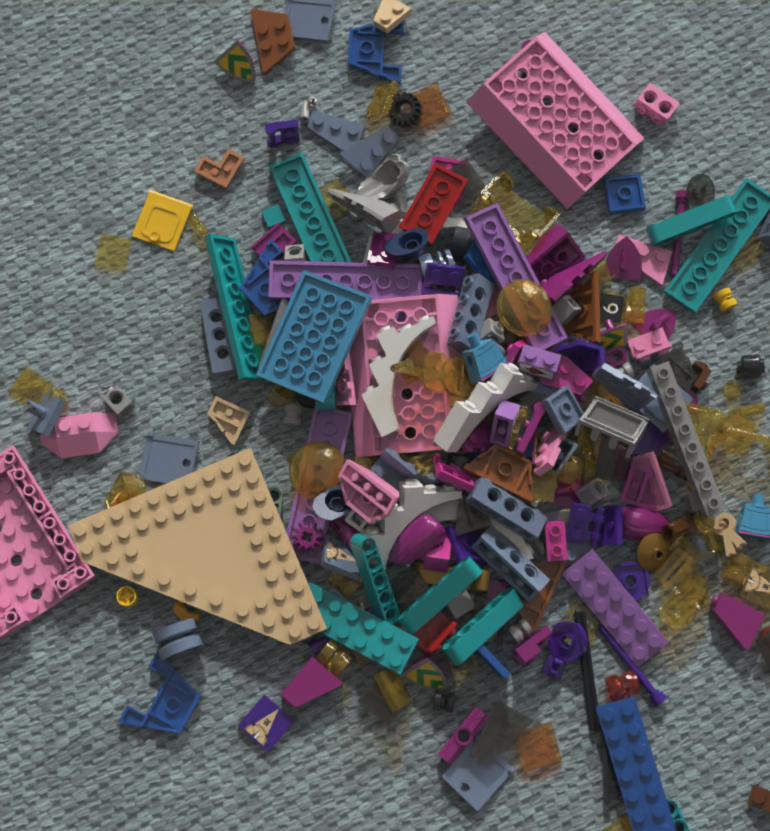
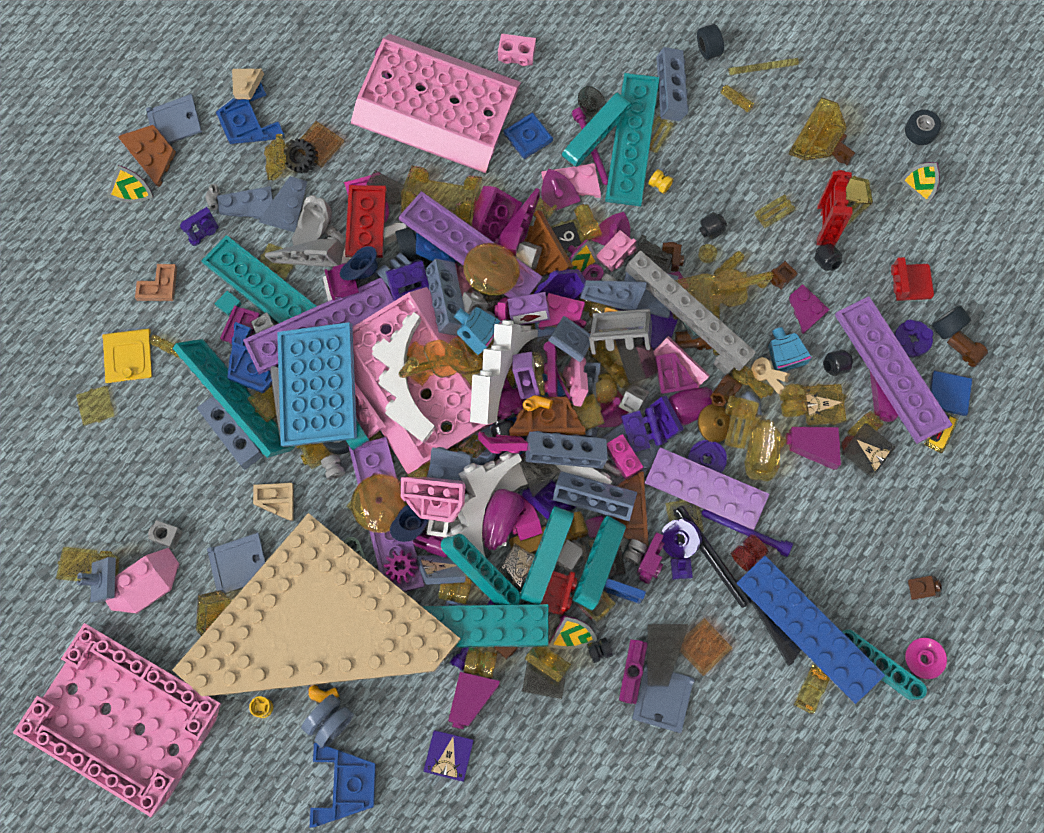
camera: 20 degrees left, 5 degrees down
(501, 451) = (537, 401): none -> light orange arm

